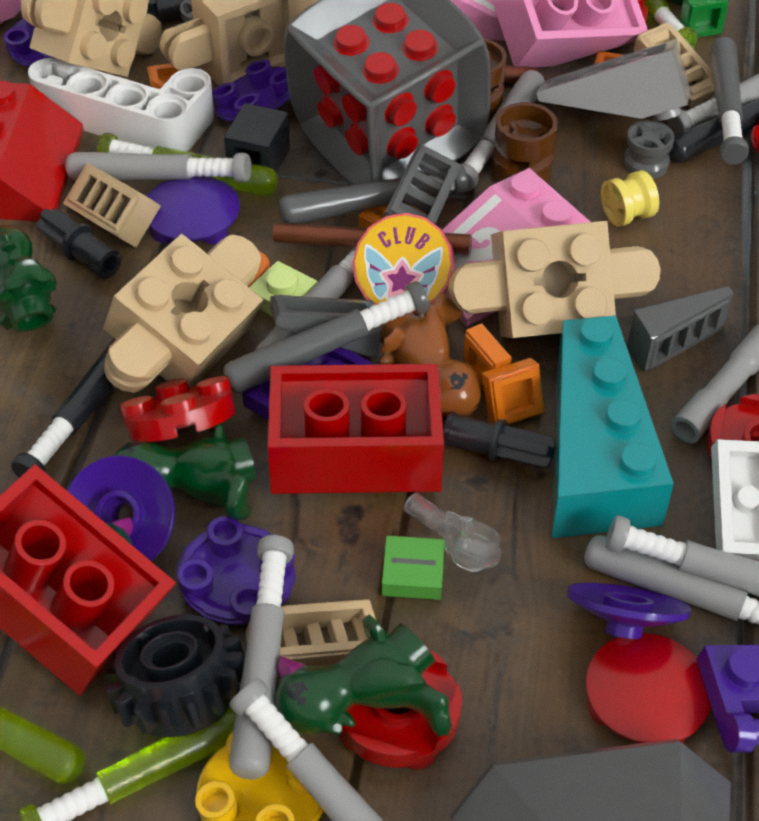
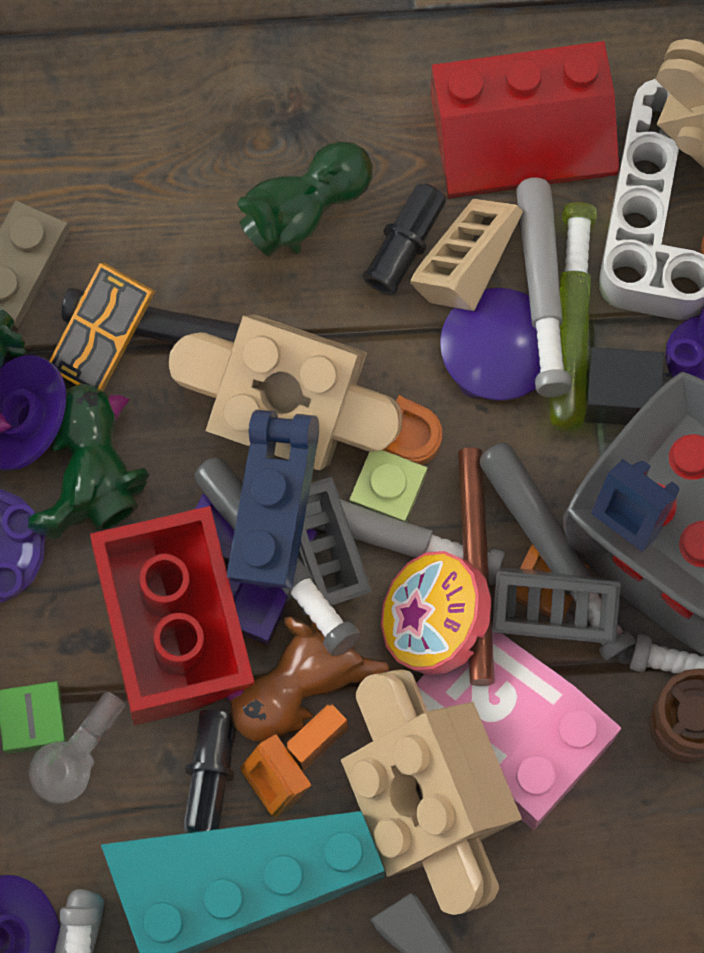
camera: 80 degrees right, 25 degrees up
(57, 432) = (101, 327): none -> tile
(178, 407) = (180, 415): red plate -> none
(285, 311) = (273, 500): none -> dark blue plate
(387, 45) = (634, 503): none -> dark blue tile
(629, 198) = (644, 866): light yellow wheel -> none

